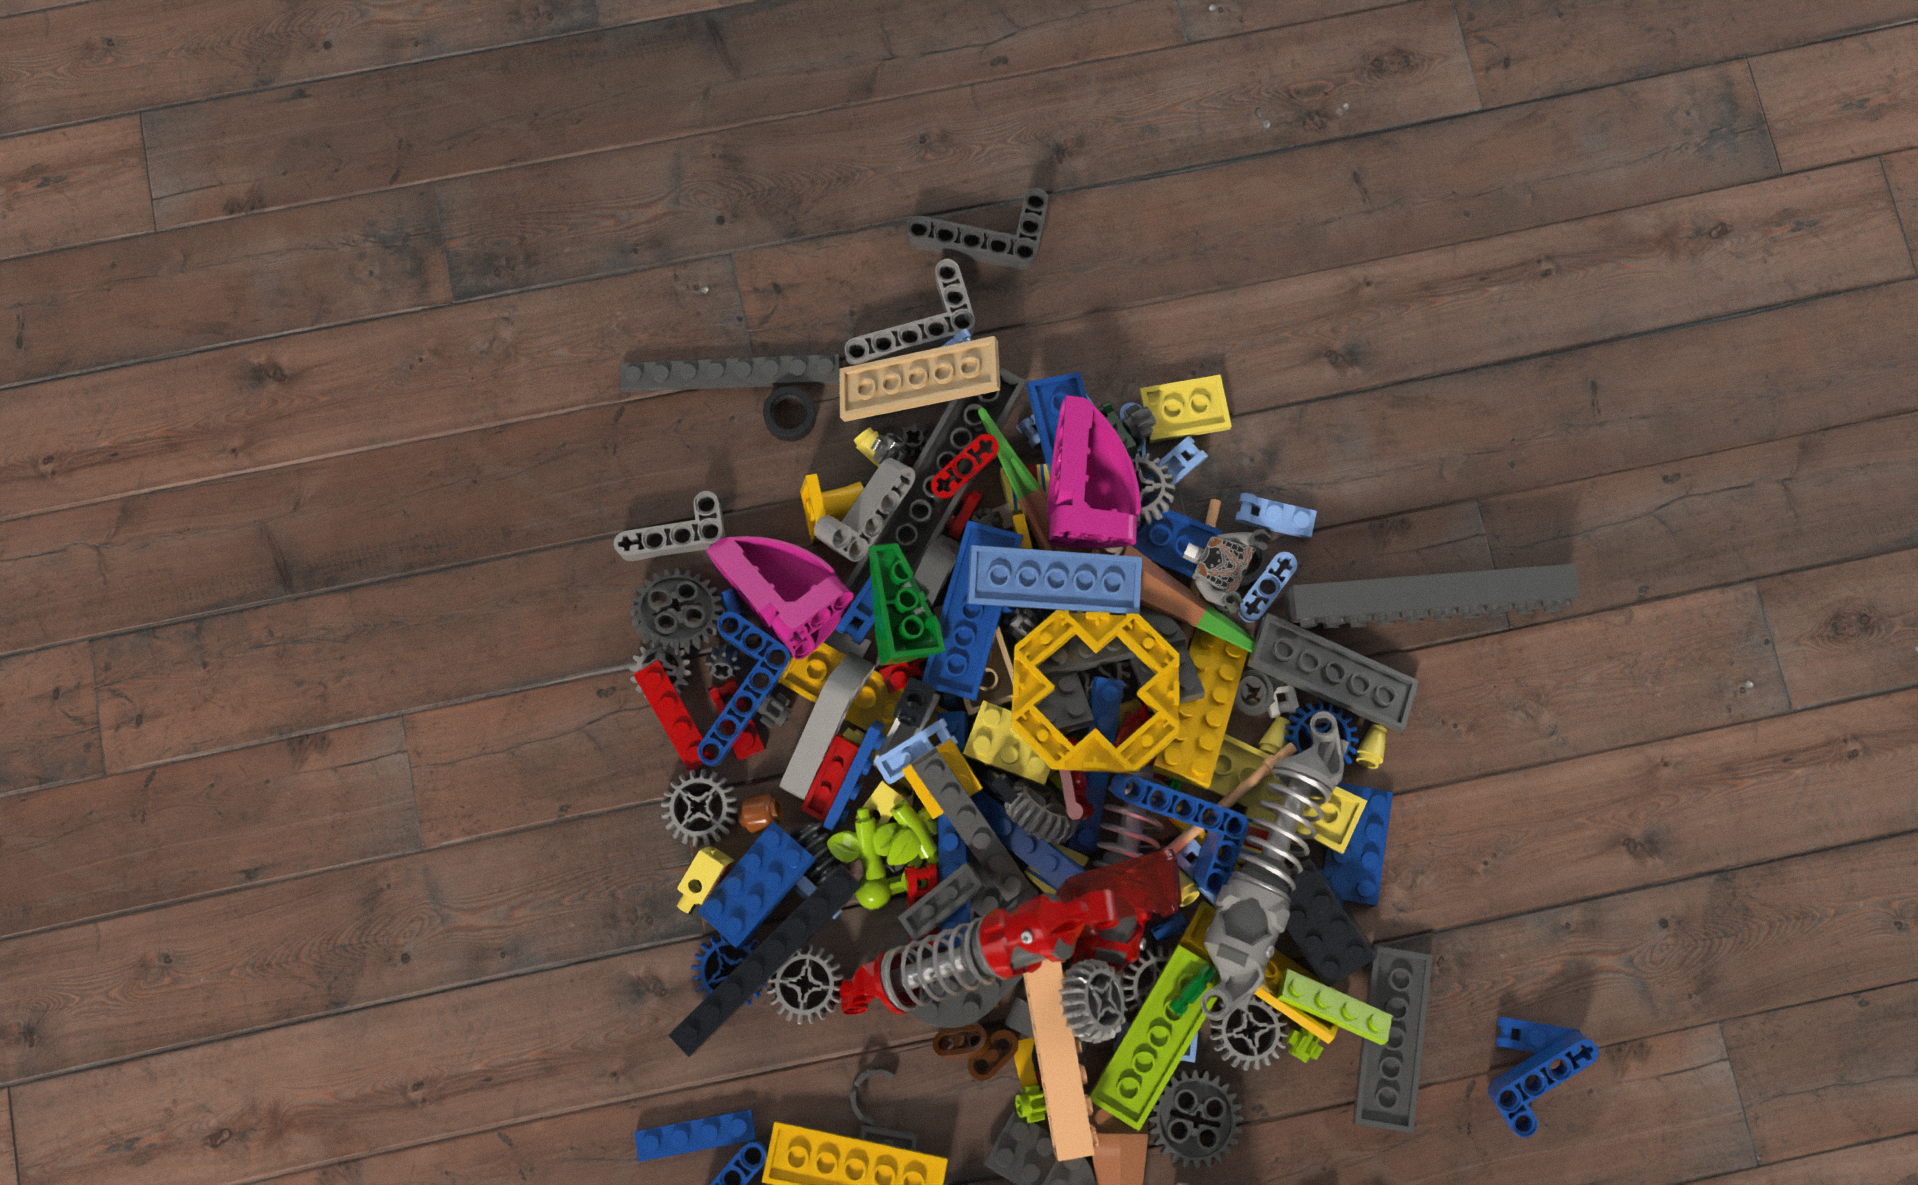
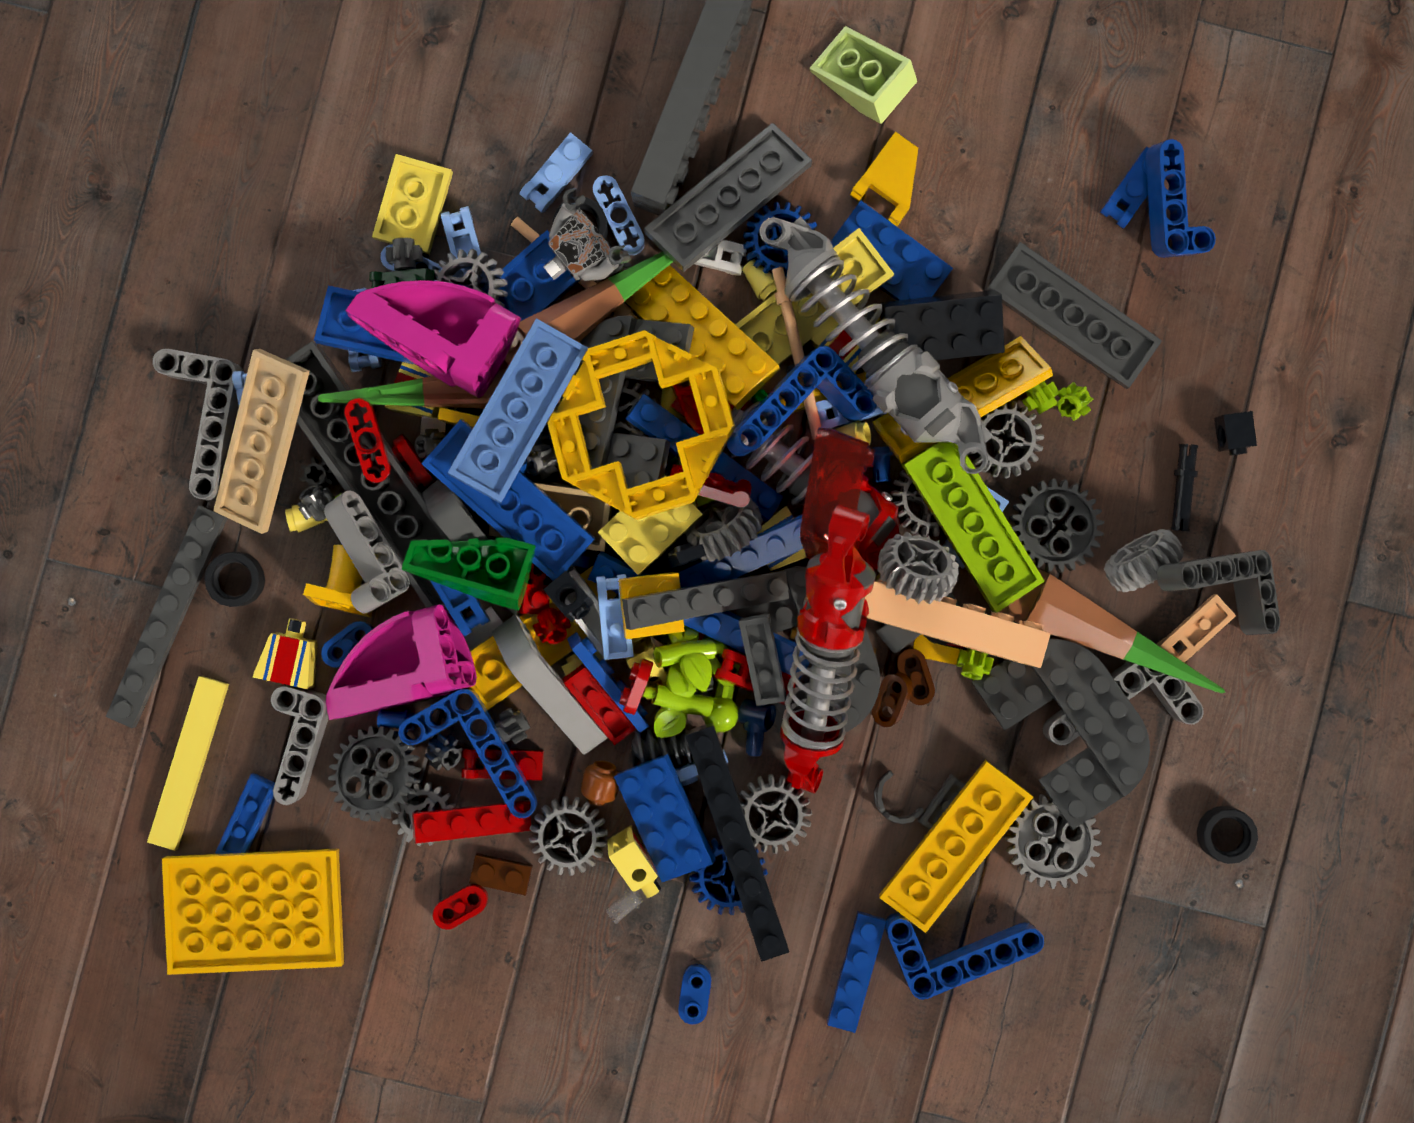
camera: 65 degrees left, 10 degrees up
(507, 566) = (253, 911): none -> yellow plate
(585, 521) = (247, 816): none -> blue tile
(592, 743) = (461, 906): none -> red plate
(606, 993) = (694, 994): none -> blue plate
(611, 449) = (188, 763): none -> light yellow tile
(637, 765) = (501, 874): none -> reddish brown plate
(660, 889) = (624, 905): none -> clear pin
(743, 491) = (289, 657): none -> torso
(781, 530) = (345, 640): none -> blue plate
(875, 798) = (640, 675): none -> red plate
(880, 701) = (551, 626): none -> red gear
(883, 927) = (756, 722): none -> dark blue axle
(986, 238) = (150, 308): dark grey beam -> none
(1193, 989) = (949, 472): green axle -> none
(1254, 706) = (723, 283): dark grey gear -> none
(1315, 1077) = (1074, 401): none -> lime gear
(1334, 1007) = (1024, 353): lime plate -> none
(1372, 748) = (812, 197): light yellow cone -> none
(1428, 809) = (891, 176): none -> yellow flag
(1505, 741) = (865, 73): none -> yellowish green slope

